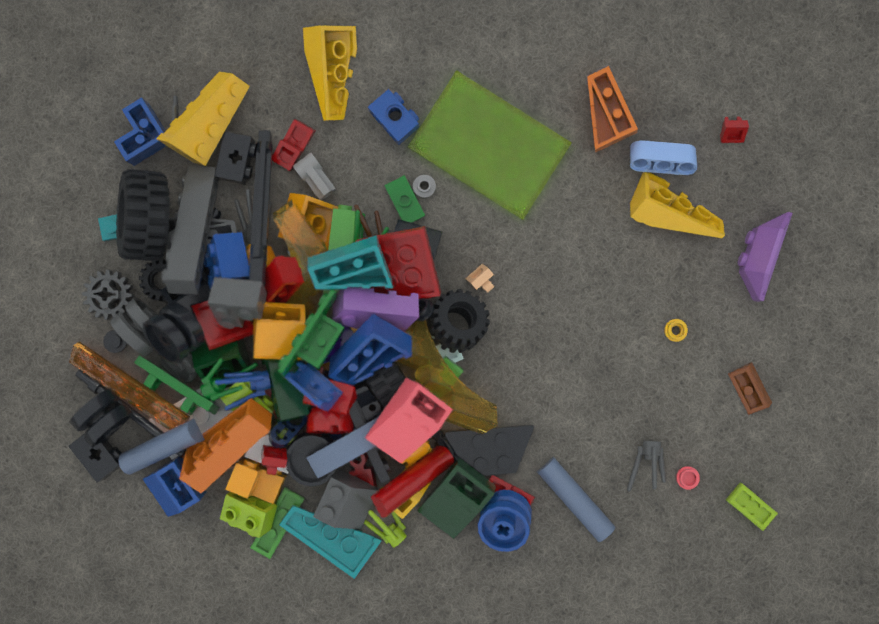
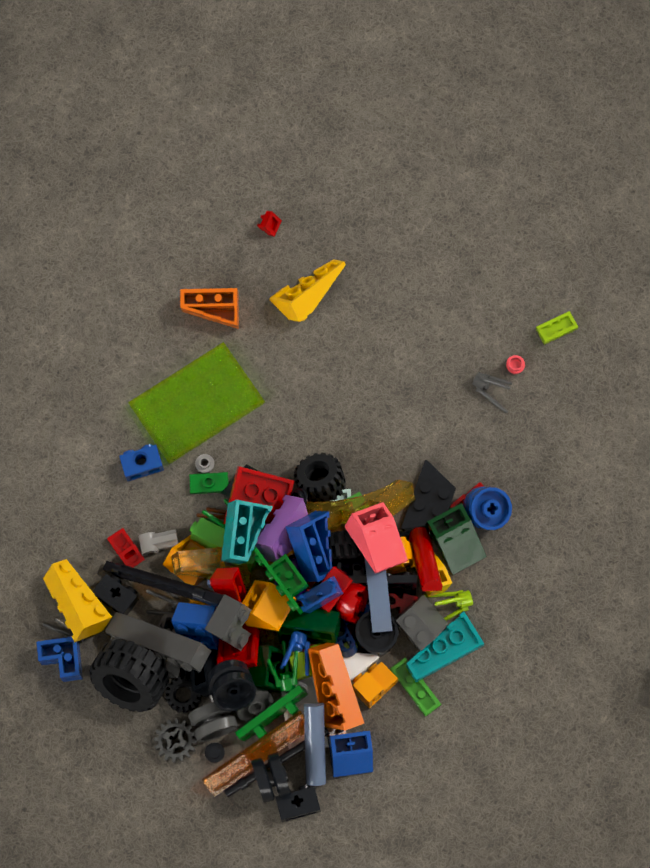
camera: 60 degrees left, 15 degrees down
(108, 227) = (122, 717): teal plate -> none
(248, 514) = (394, 699): lime brick -> none
(273, 458) = (362, 658): red tile -> none
(328, 60) = (71, 492): yellow wedge -> none
(480, 278) = (295, 450): light nougat tile -> none
(576, 500) = (496, 452): sand blue brick -> none
(663, 157) = (266, 281): light blue beam -> none
(682, 327) = (402, 321): yellow plate -> none
(750, 388) = (468, 292): dark orange slope -> none
(761, 254) = (371, 242): medium lavender wedge -> none

